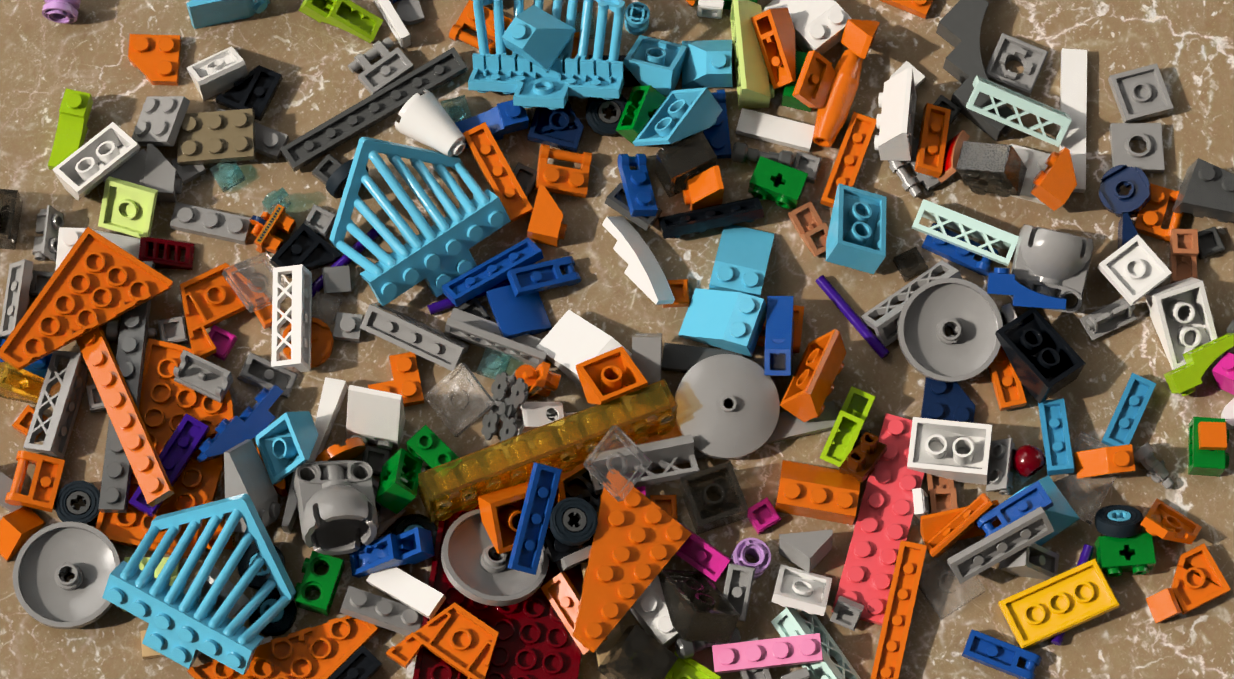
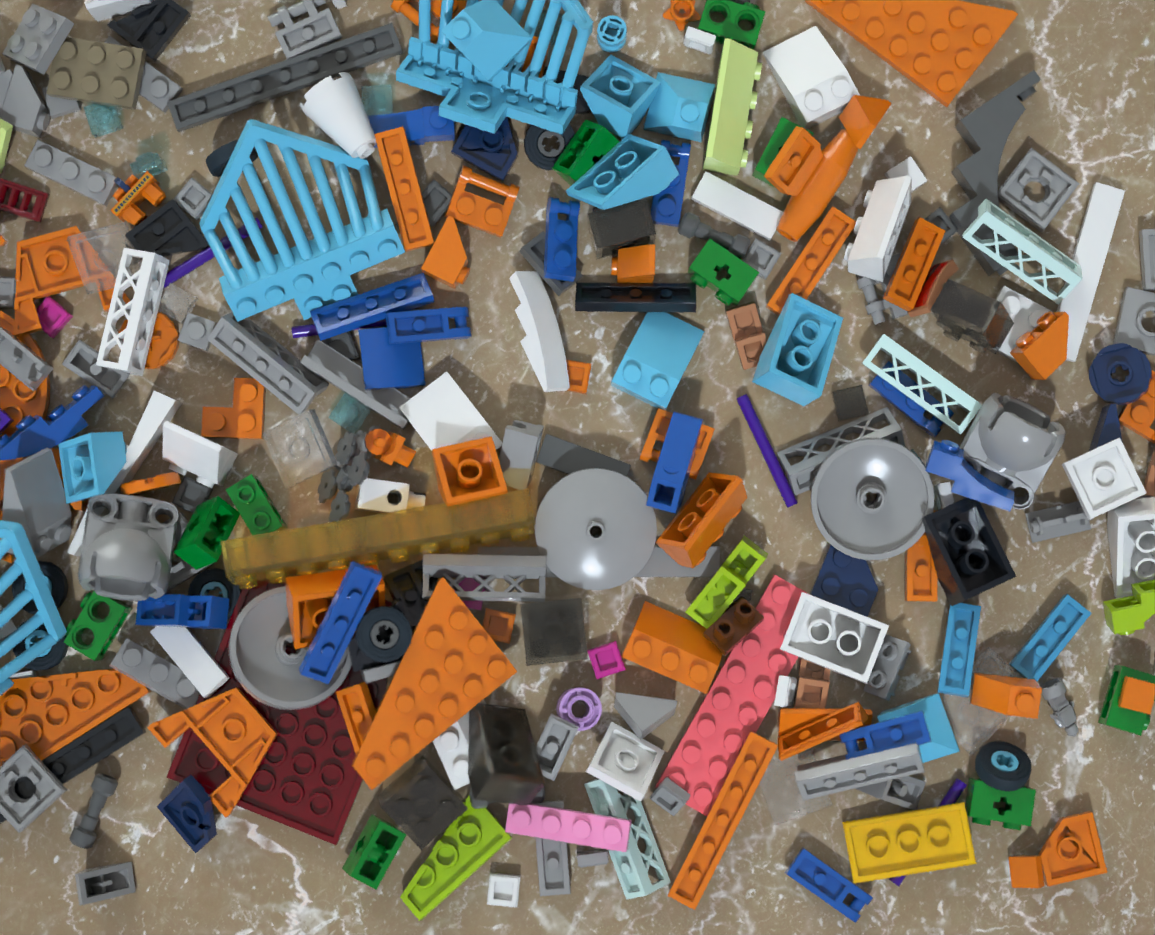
camera: 20 degrees right, 15 degrees up
(326, 168) = (217, 136): dark grey tile -> none
(336, 279) = (195, 273): light grey tile -> none
(617, 463) = (449, 578): clear tile -> none
(704, 556) = (525, 689): dark pink plate -> none
(724, 320) = (619, 425): medium azure slope -> none
(777, 43) = (764, 105): orange slope -> none
(1028, 460) = (920, 668): dark red piece -> none
(1169, 524) = (1059, 782): orange plate -> none

